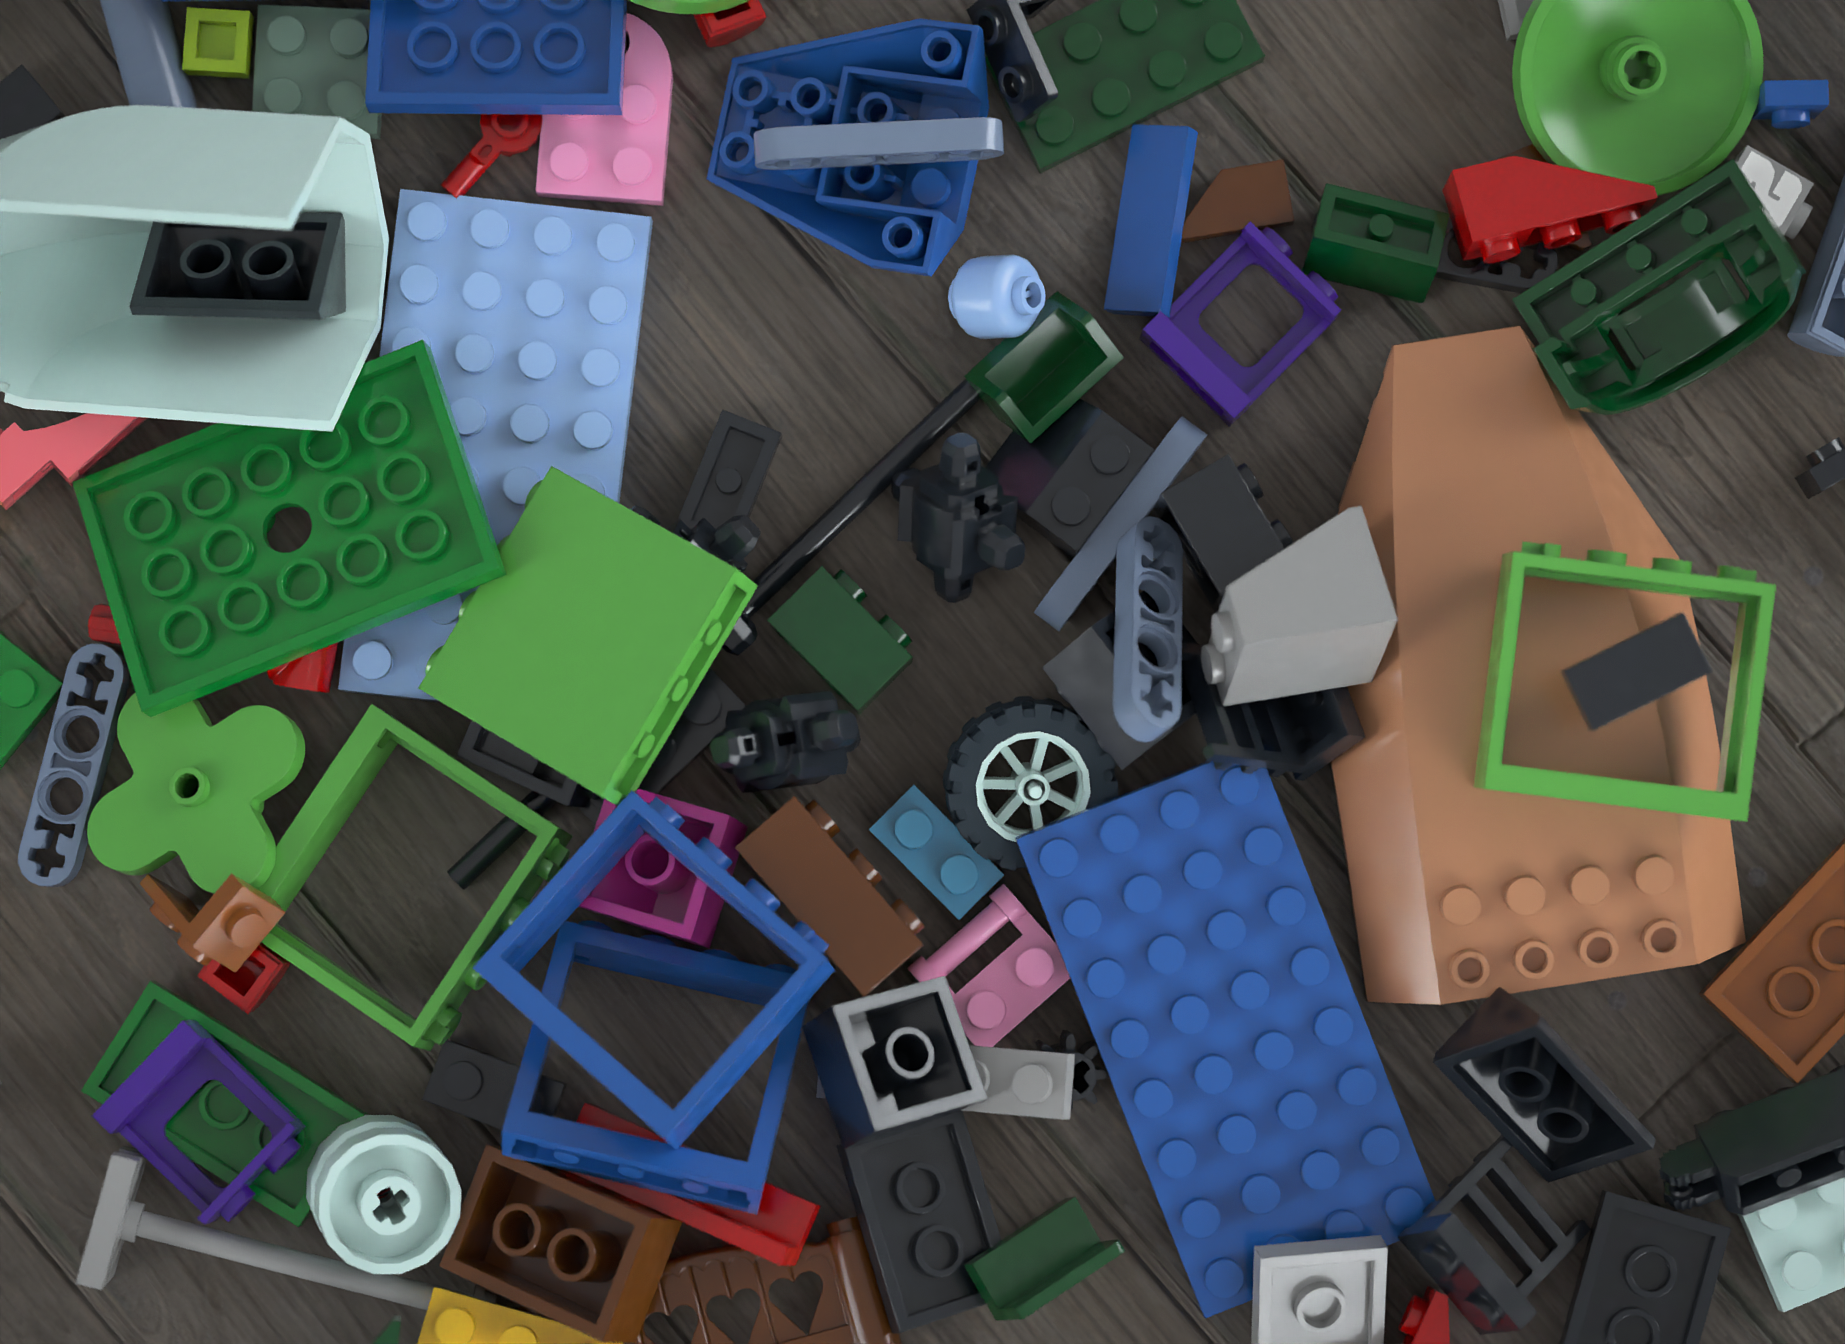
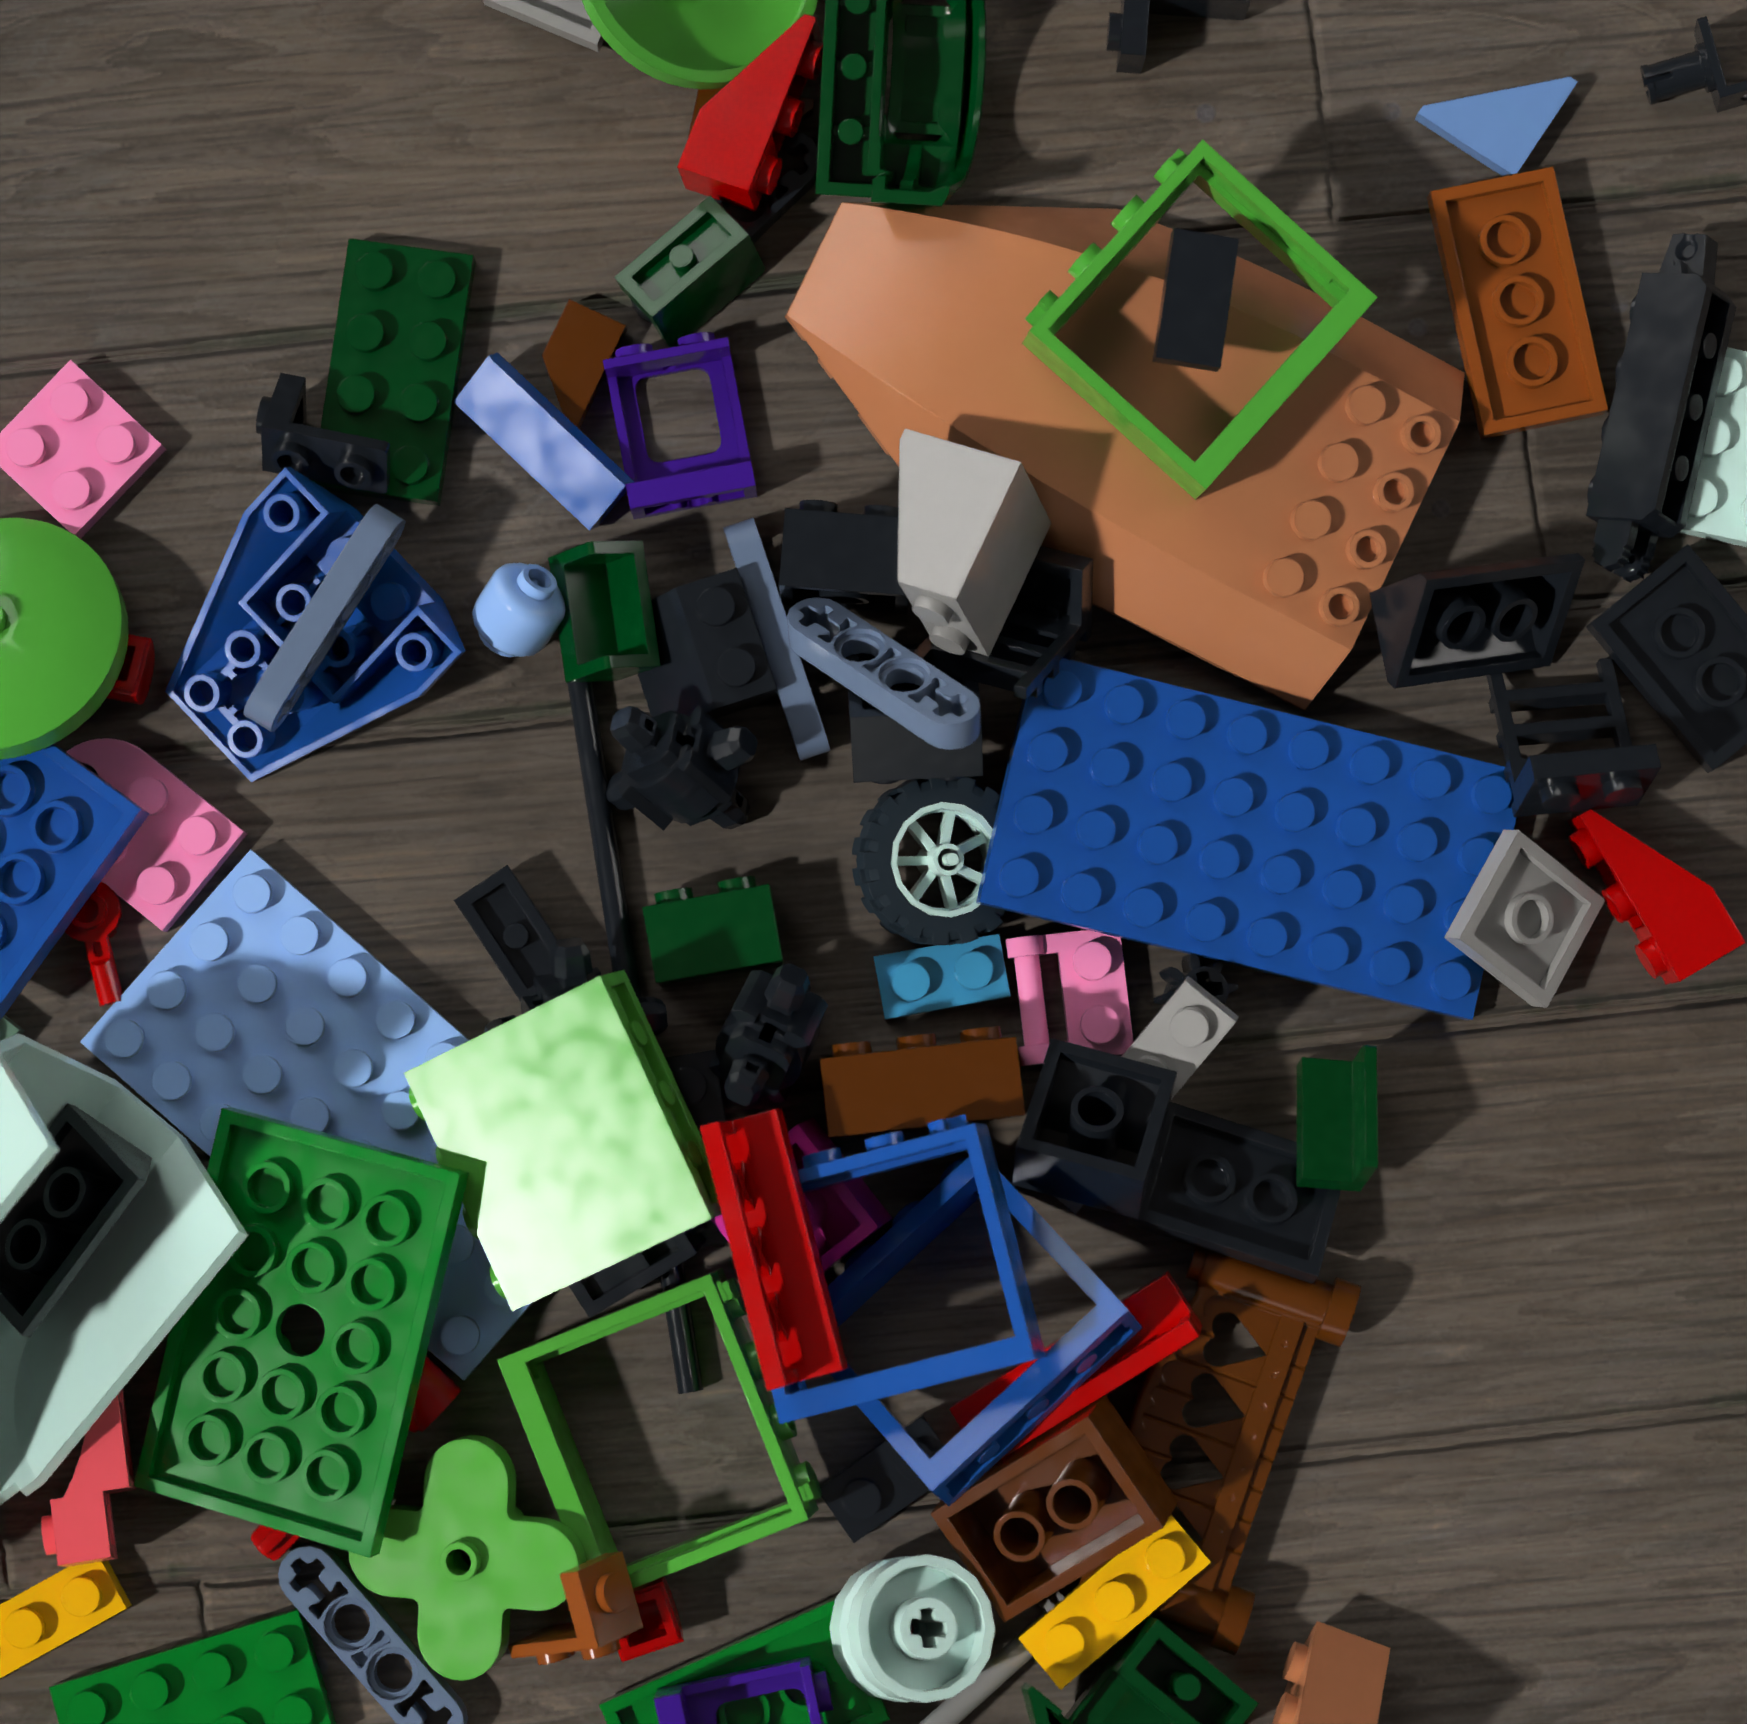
camera: 60 degrees left, 0 degrees up
(610, 863) = (774, 1248): none -> red fence

